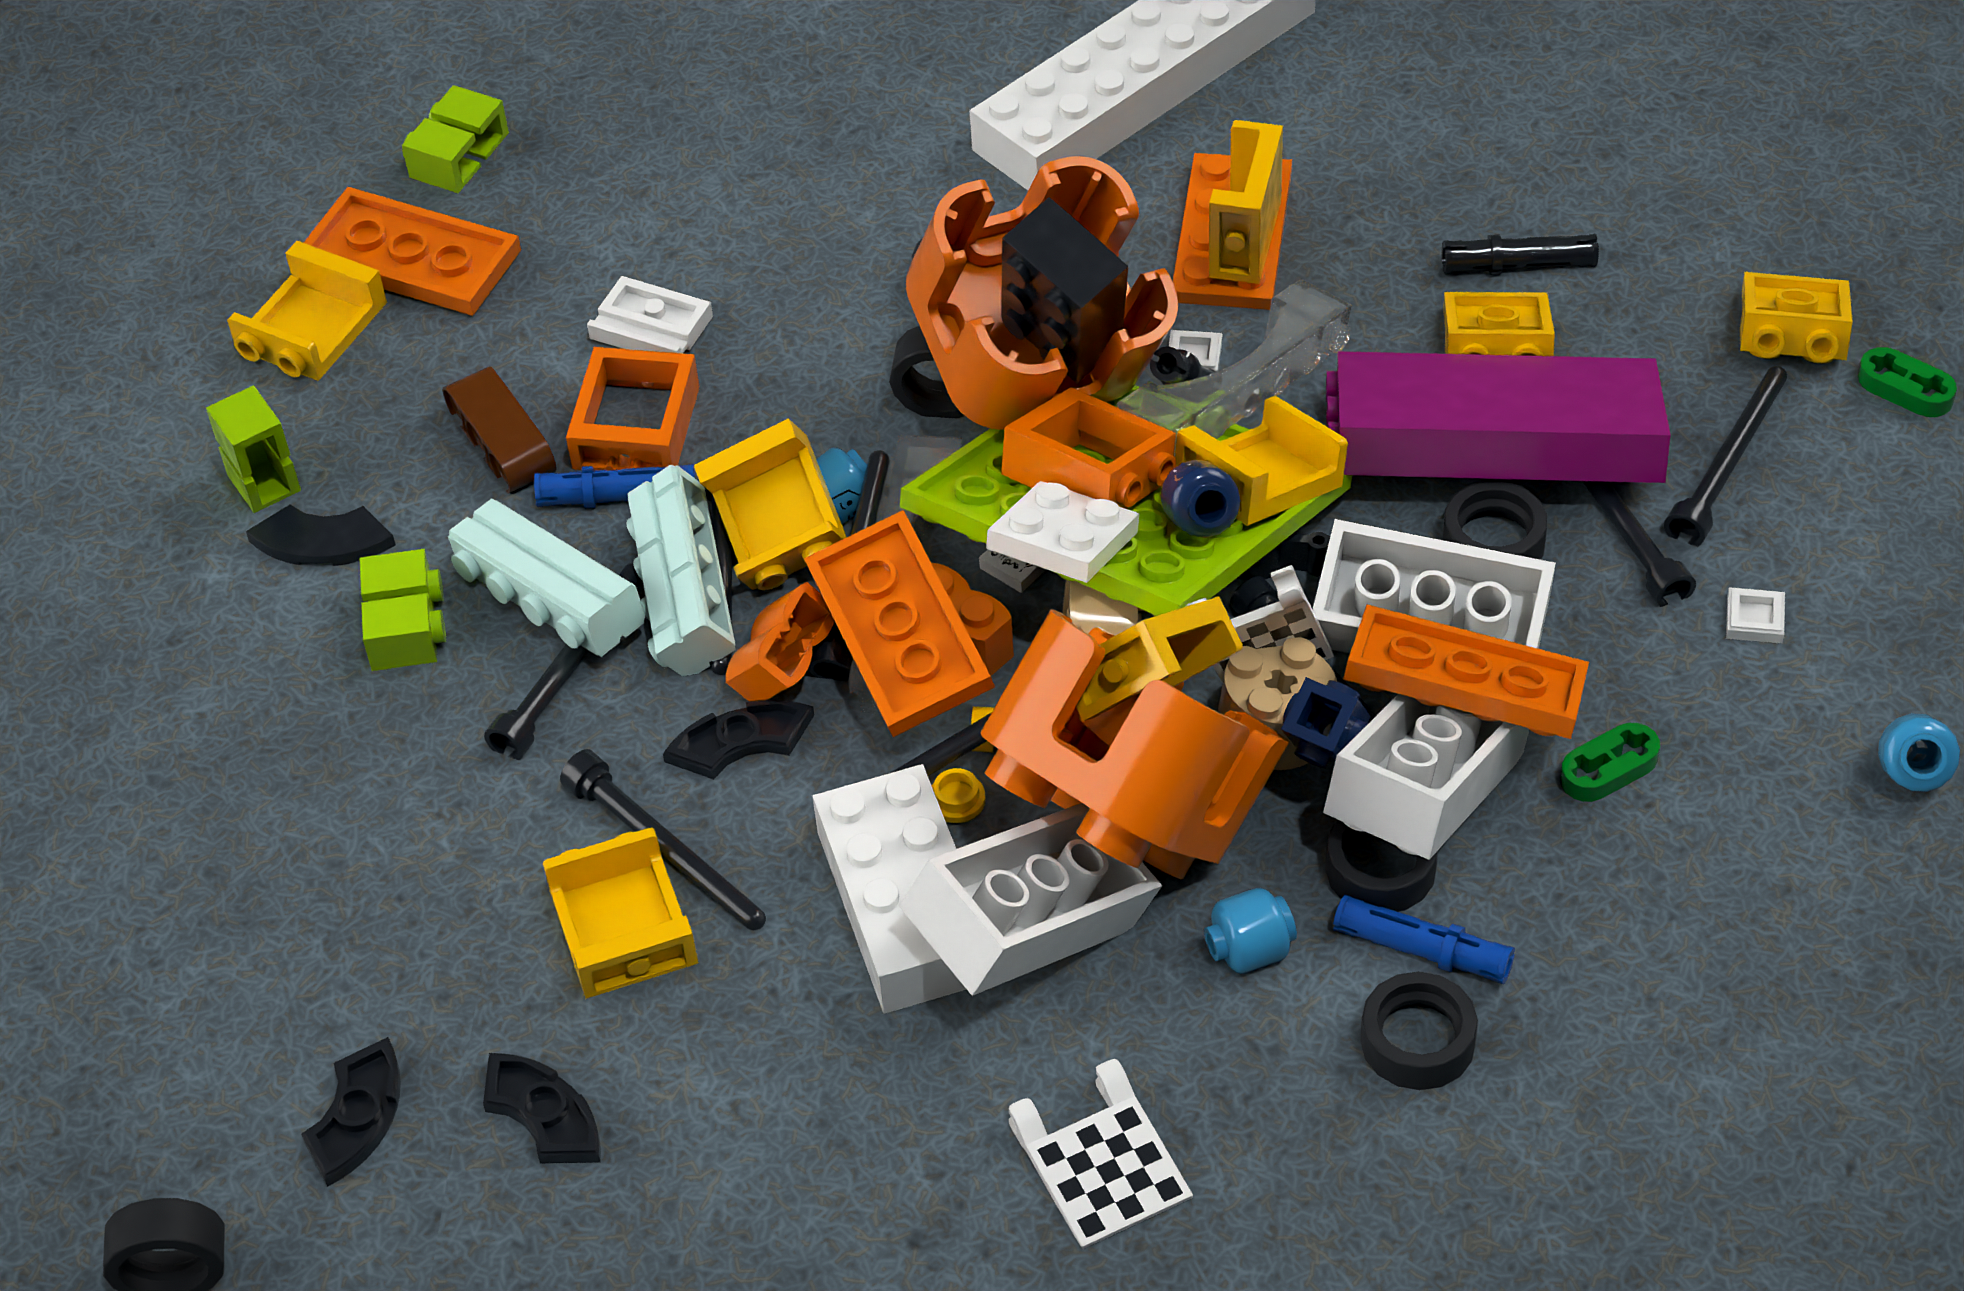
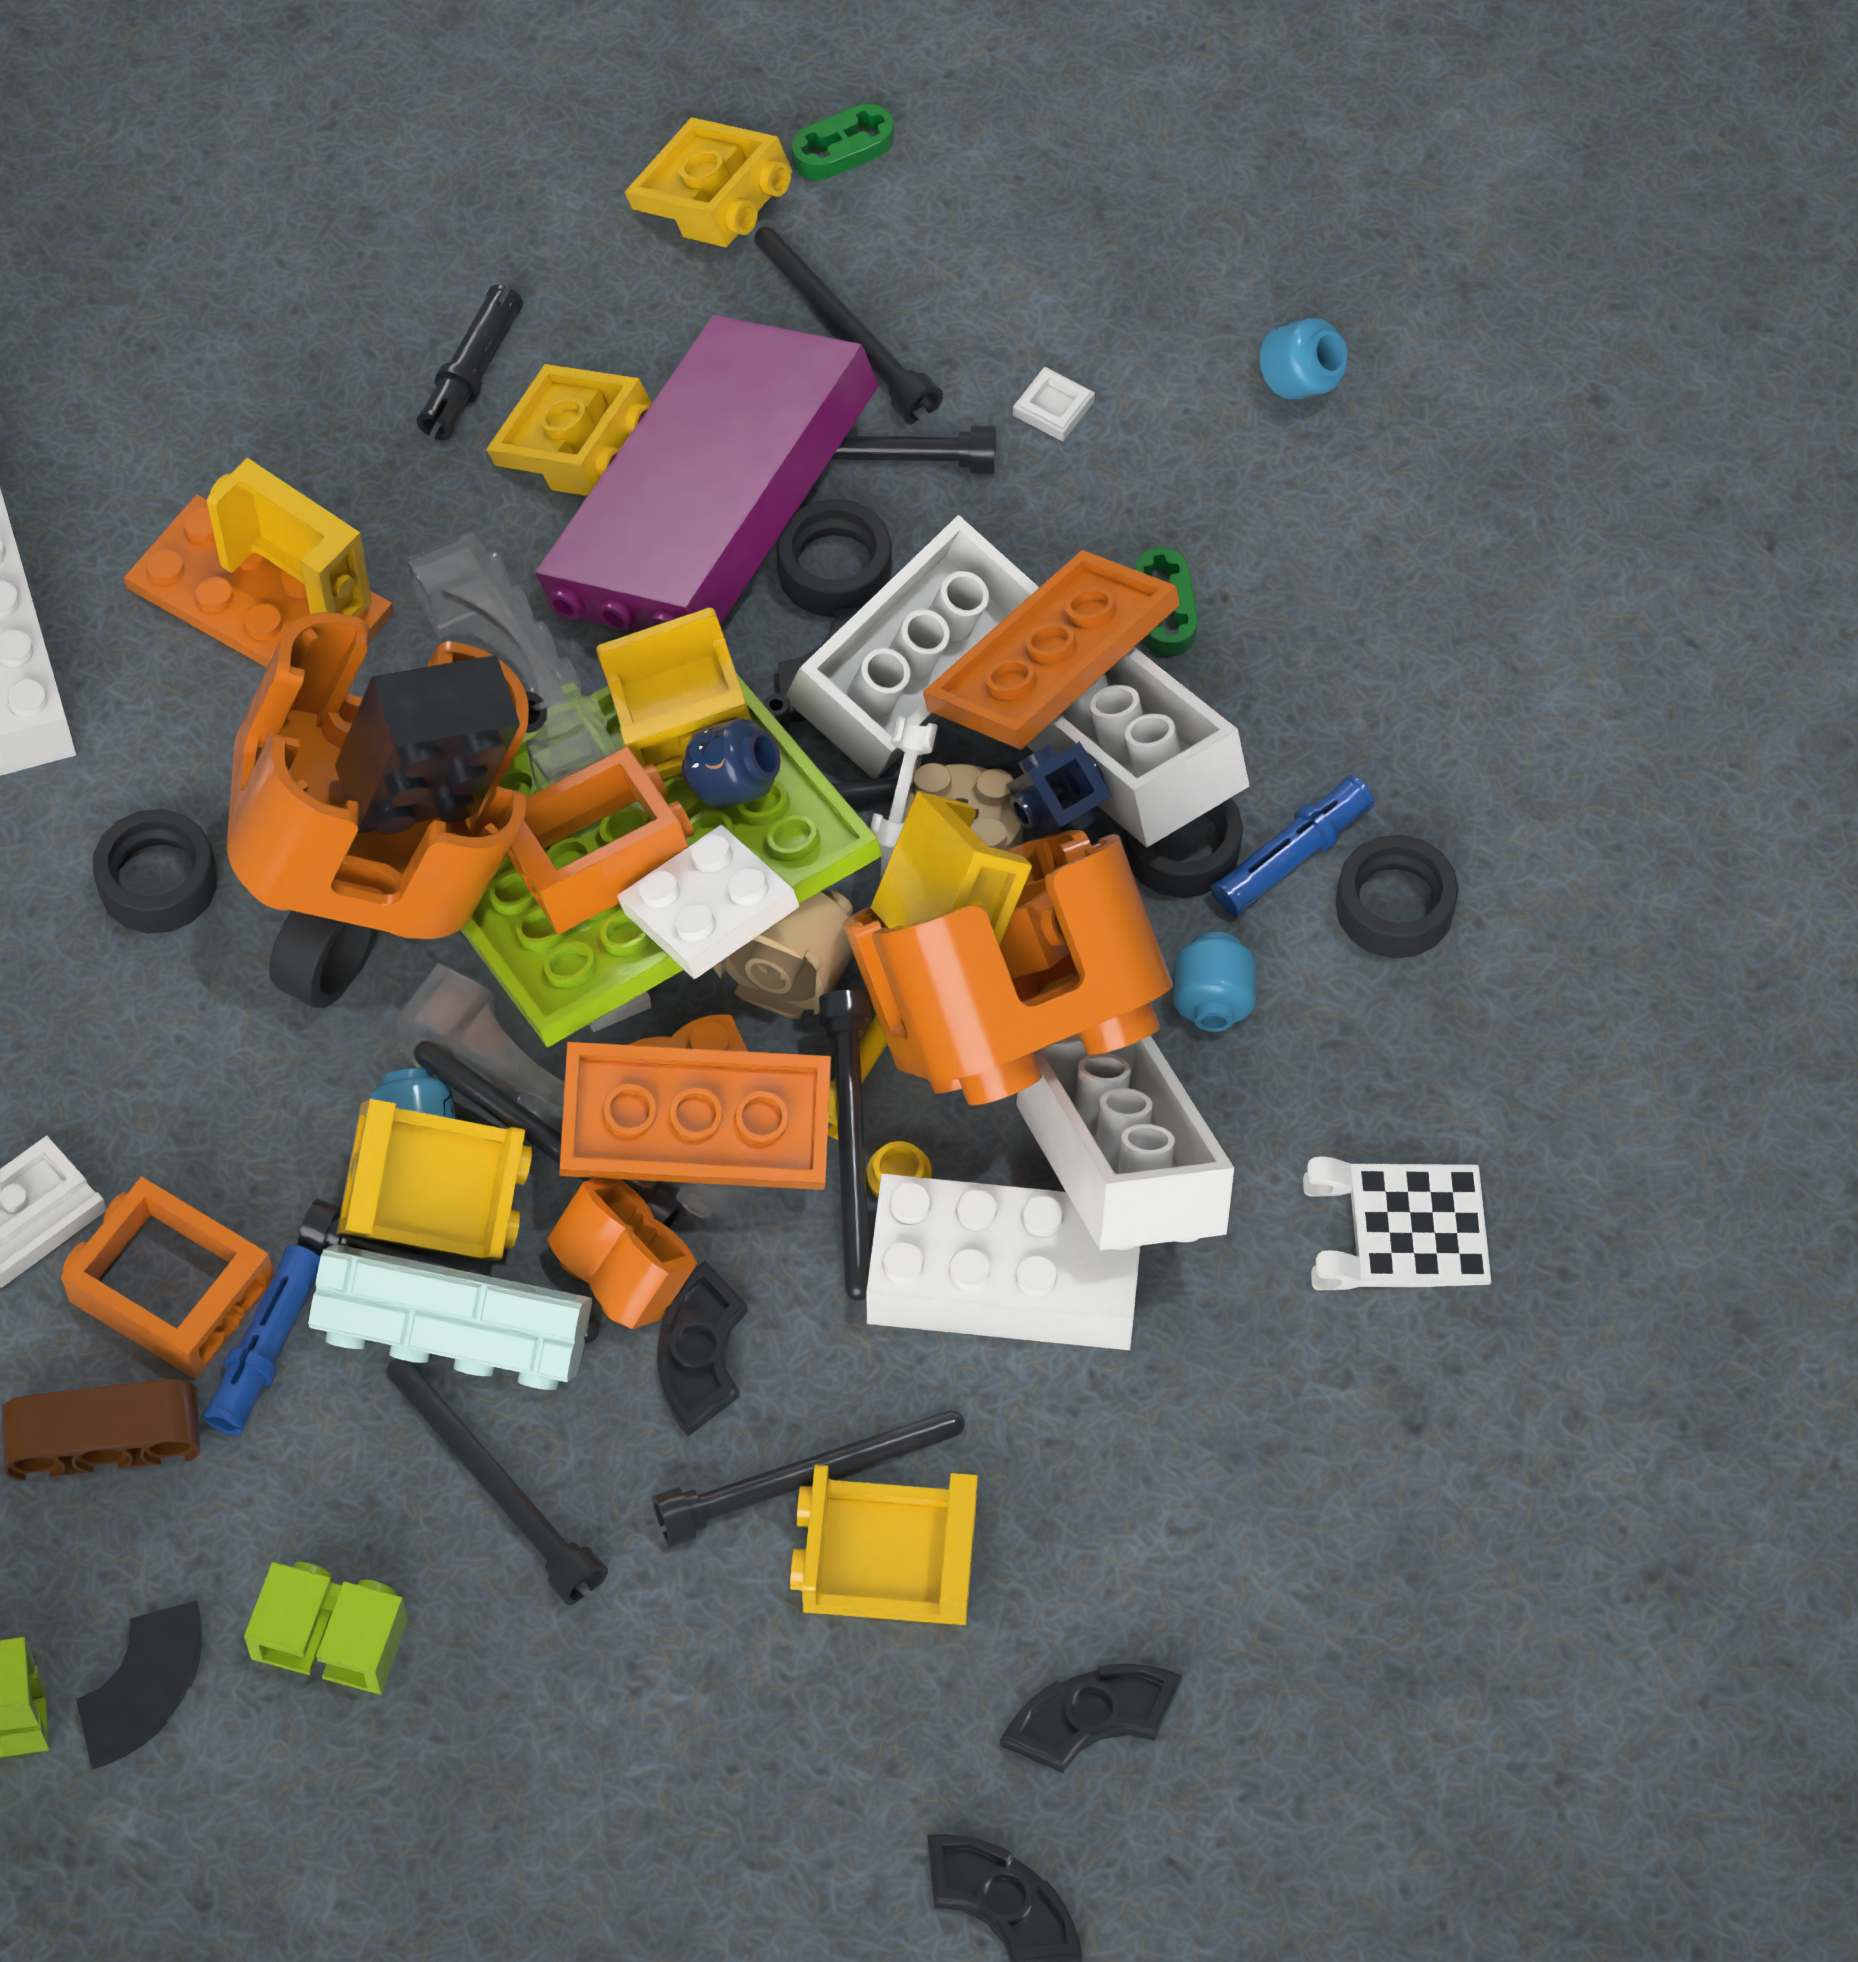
camera: 70 degrees left, 10 degrees up
(545, 578) = (381, 1454): light aqua brick -> none

